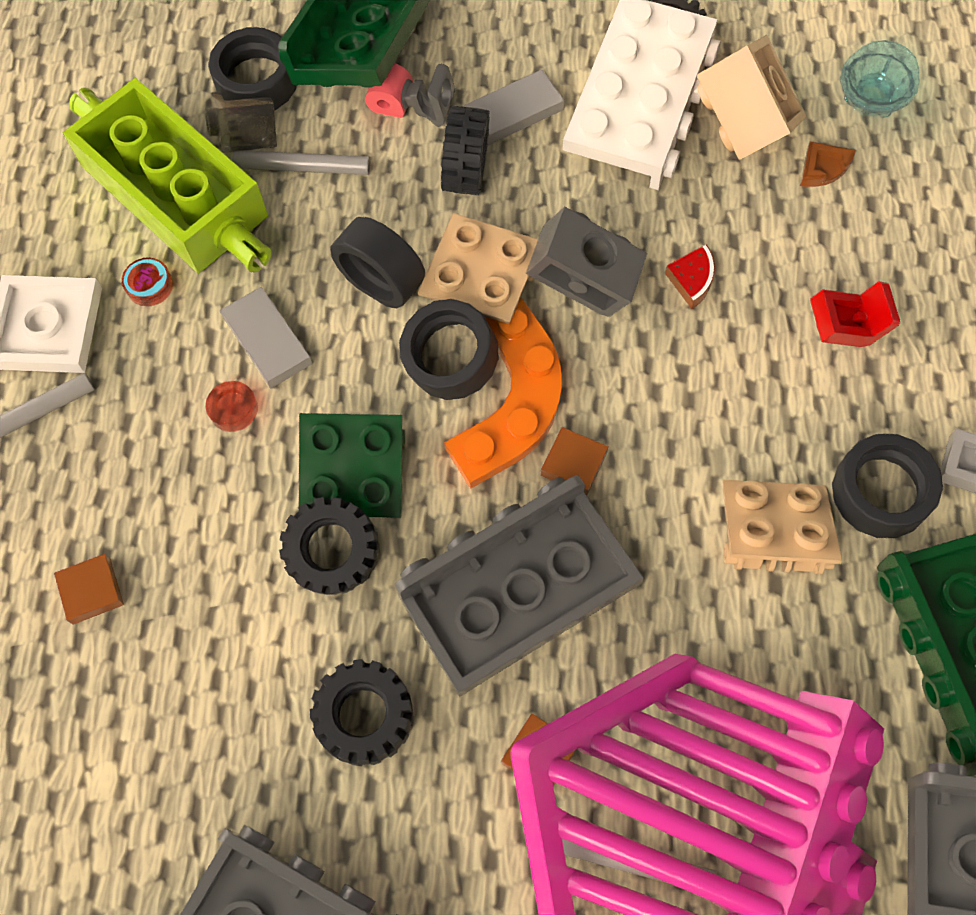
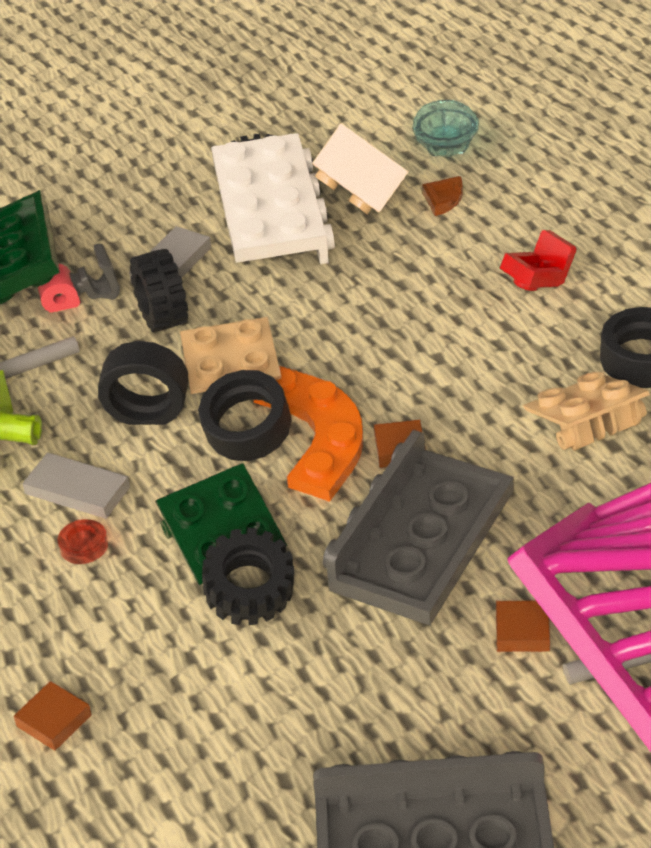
camera: 30 degrees left, 25 degrees down
(333, 693) = (361, 691): black tyre -> none
(561, 262) = (314, 313): dark grey brick -> none
(693, 275) = (398, 297): red tile -> none

